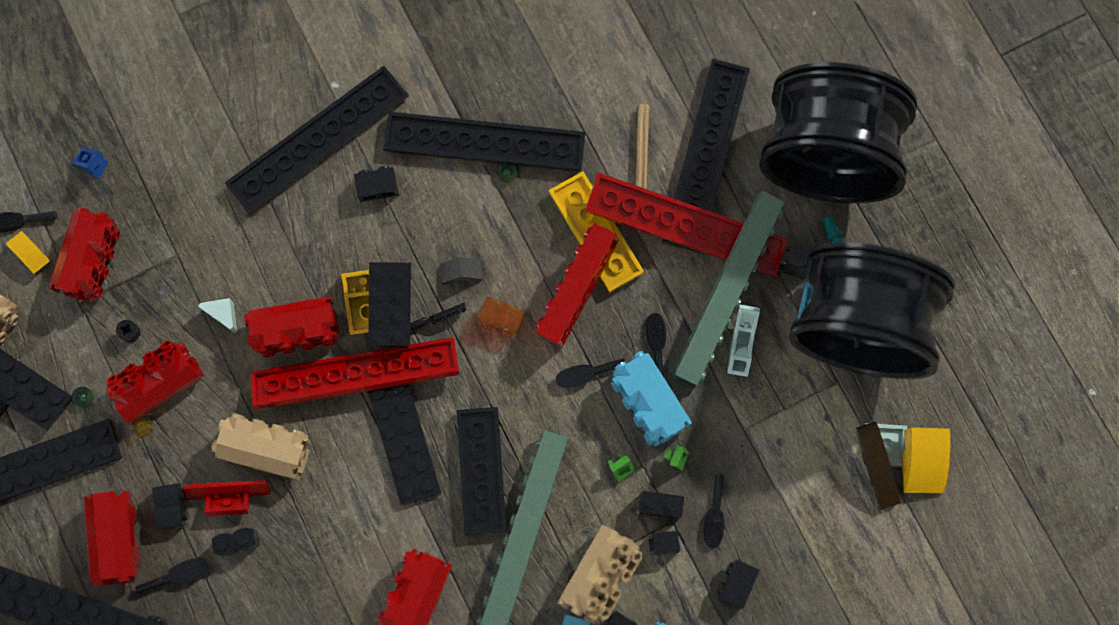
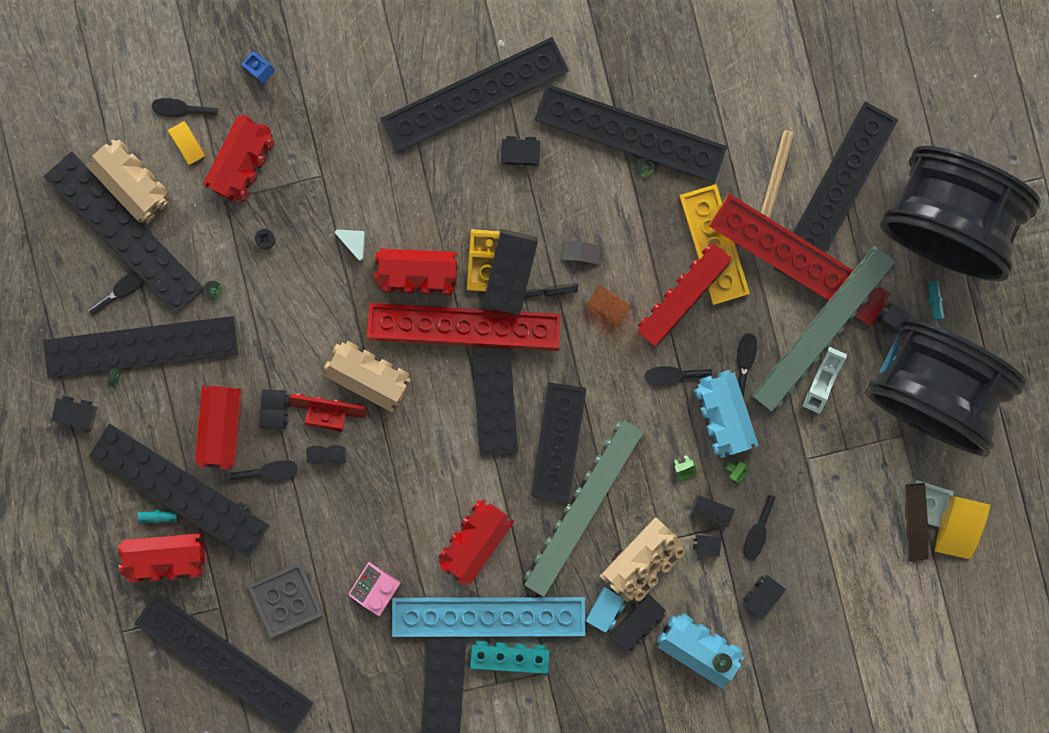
camera: 15 degrees right, 10 degrees up
(142, 427) = (262, 331): clear yellow plate -> none
(159, 379) = (290, 290): red brick -> none

